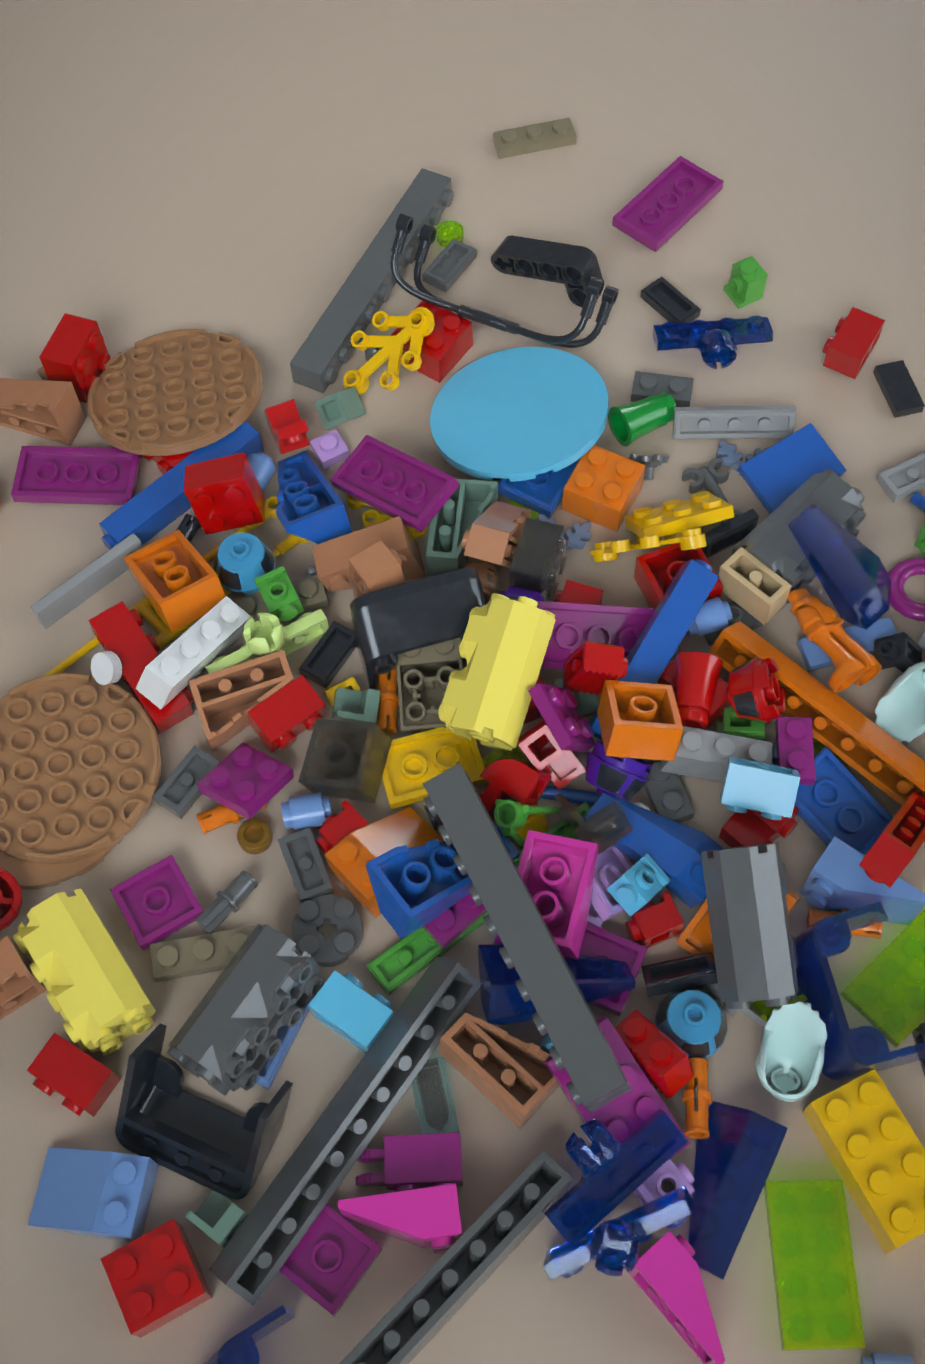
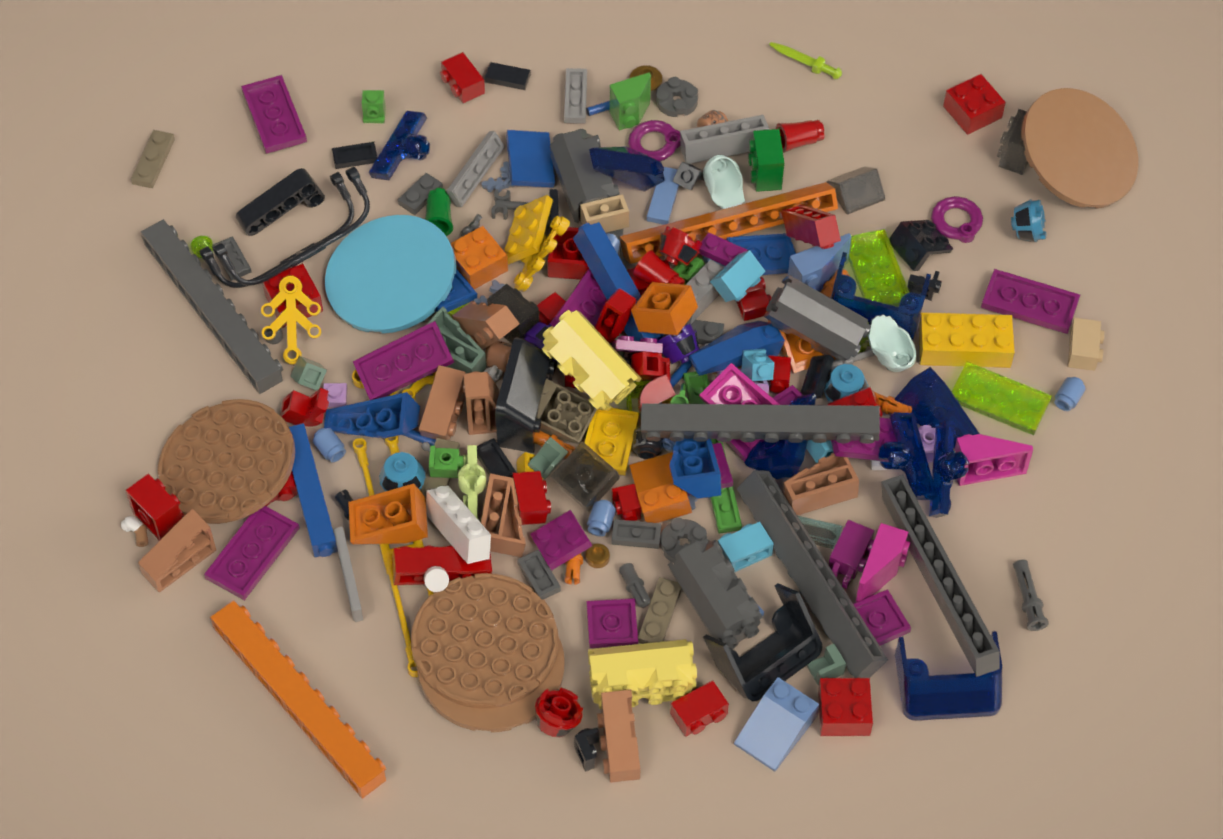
camera: 65 degrees left, 5 degrees down
(224, 493) = (344, 460): red brick -> none
(602, 828) = (717, 364): clear smoke bracket -> none
(824, 628) = (653, 198): orange piece -> none

